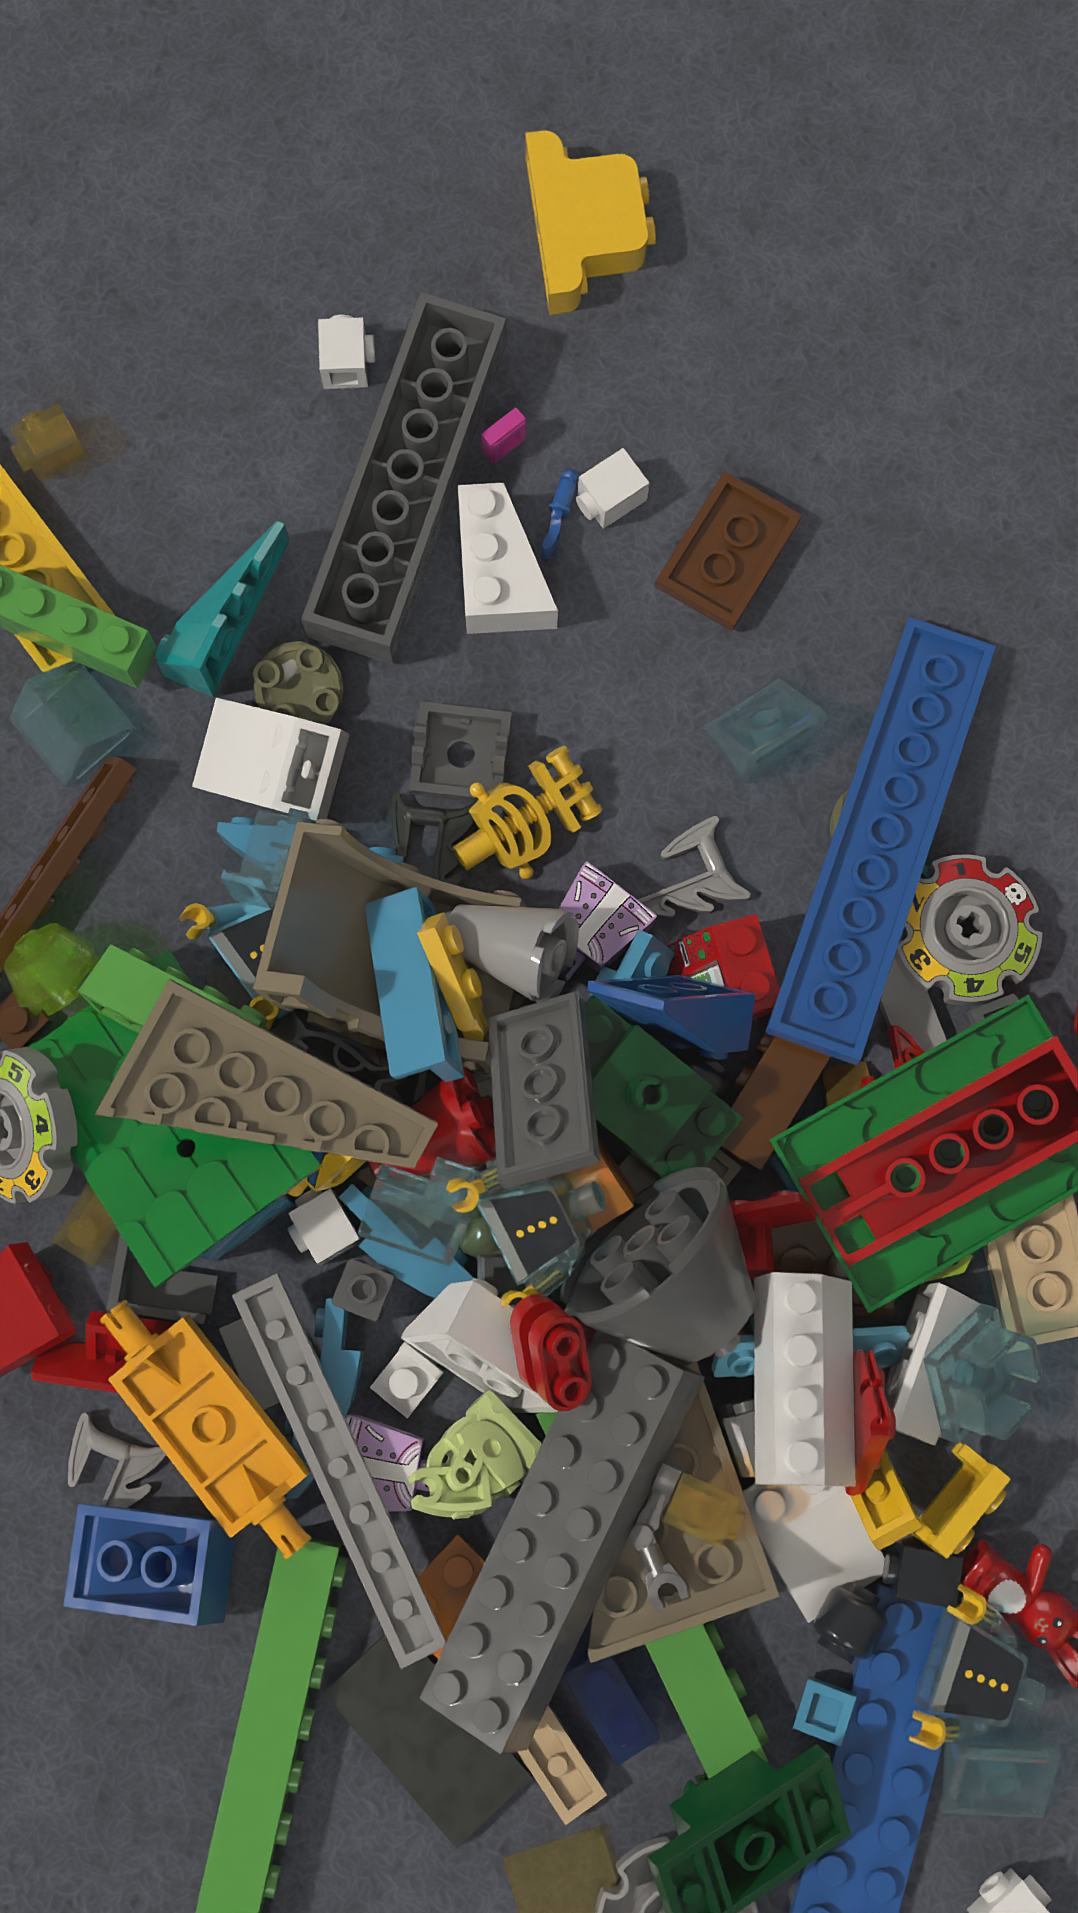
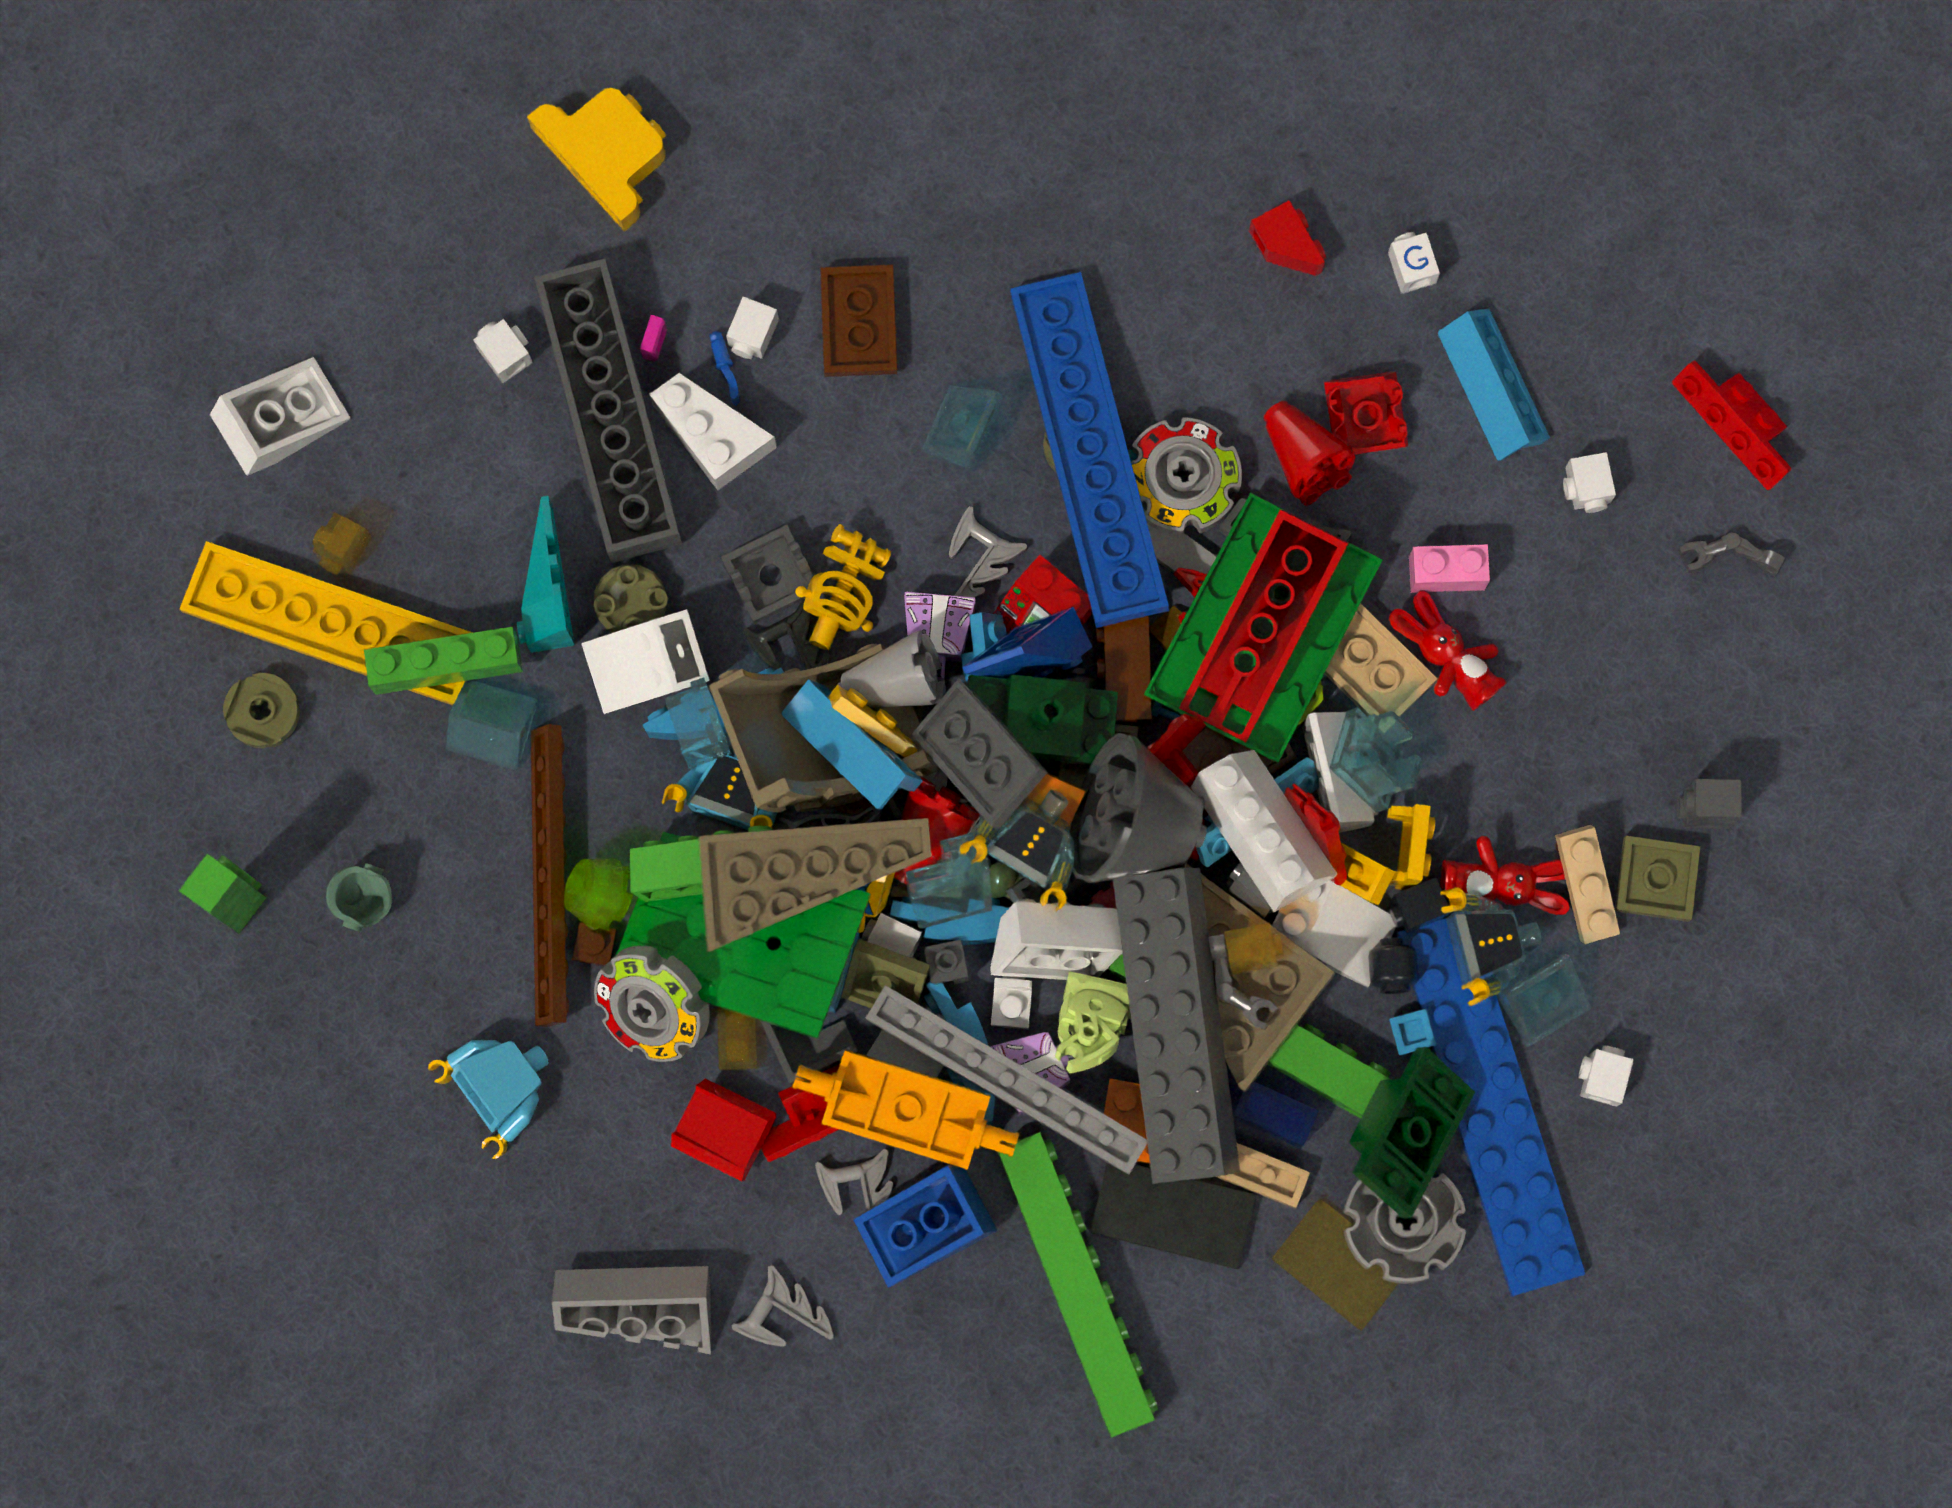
camera: 30 degrees left, 0 degrees up
(76, 275) = (278, 415): none -> white slope
(282, 1247) = (875, 967): none -> olive plate
(550, 1352) = (1093, 911): red brick -> none

